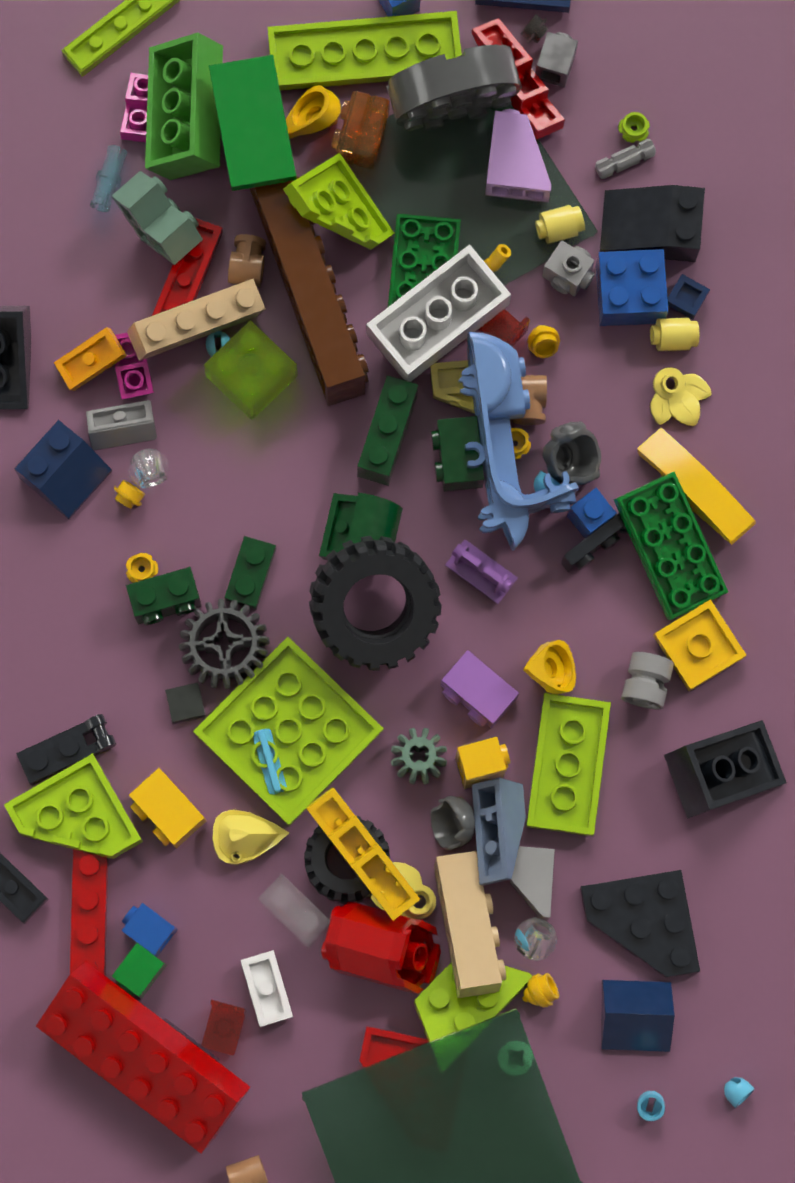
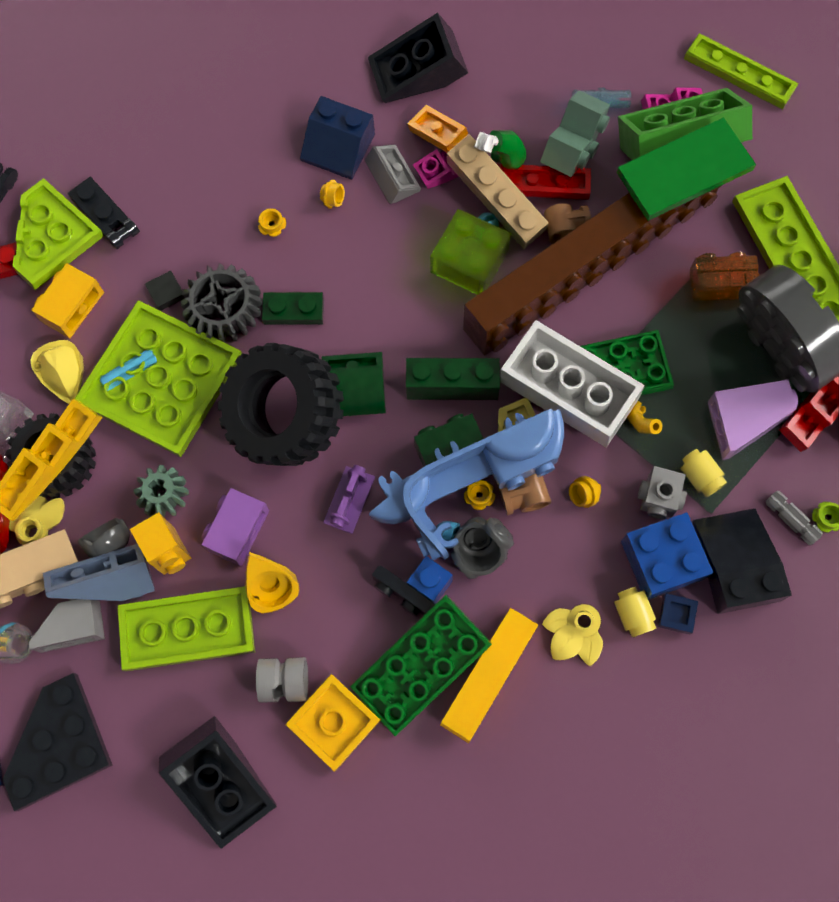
camera: 80 degrees right, 5 degrees down
(149, 468) = (358, 200): clear piece -> none
(152, 296) = (503, 146): none -> green arm
(164, 596) = (249, 243): dark green brick -> none
(313, 112) = (723, 235): yellow piece -> none
(339, 203) = (644, 269): lime plate -> none
(506, 327) = (583, 454): clear red bracket -> none

